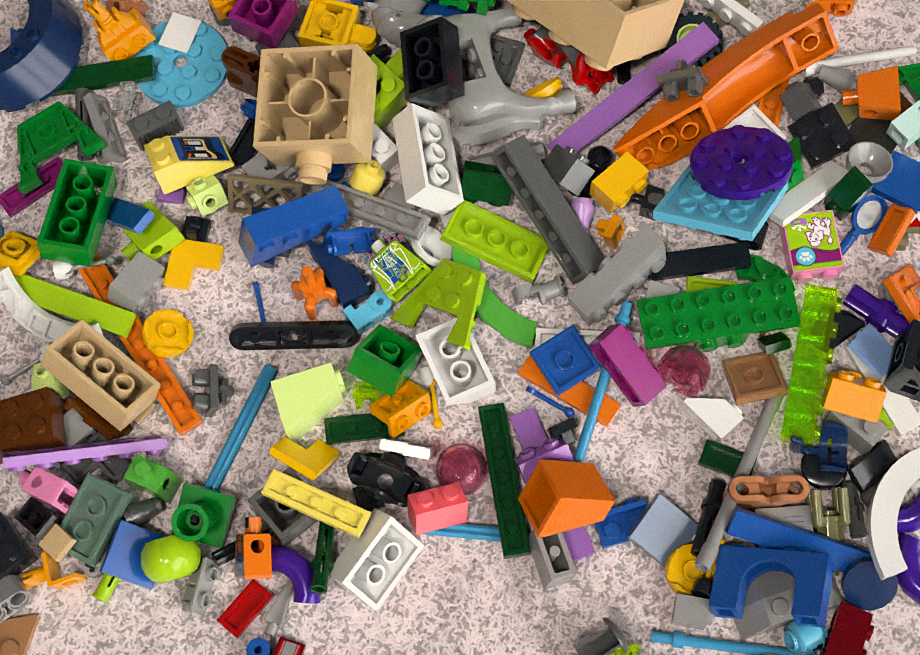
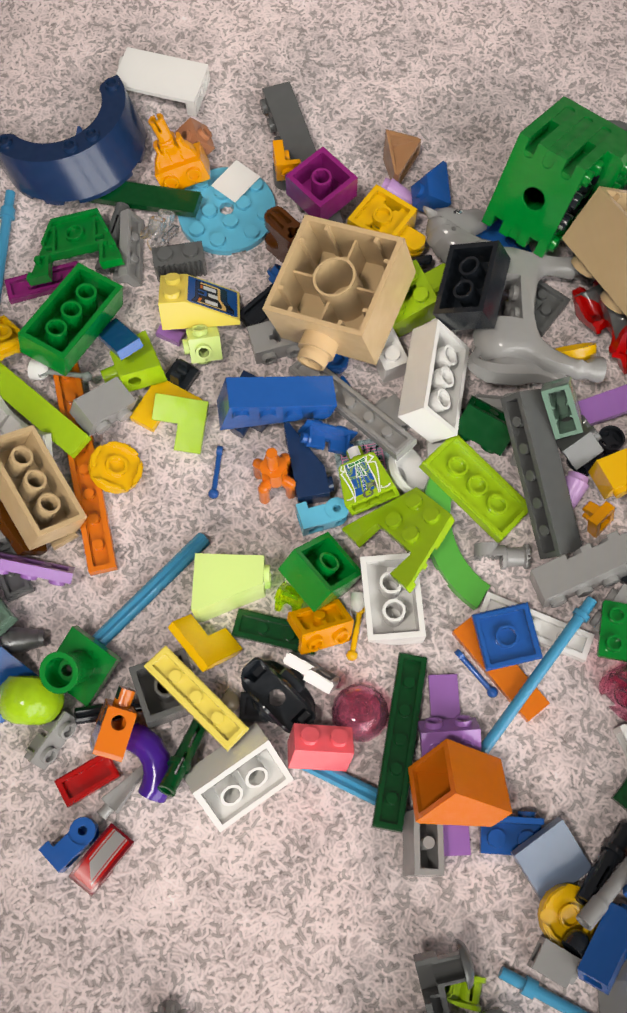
camera: 15 degrees right, 0 degrees up
(150, 478) = (43, 608): bright green torso -> none
(209, 400) = (129, 549): dark grey hips -> none
(216, 263) = (190, 417): none -> lime tile
(252, 182) = (252, 345): dark tan window -> none
(268, 335) = (213, 504): black piece -> none
(367, 177) = (368, 379): light yellow head -> none
(543, 142) = (562, 402): none -> sand green torso
(563, 430) = (480, 710): black tile -> none
(627, 365) = (572, 666): magenta brick -> none

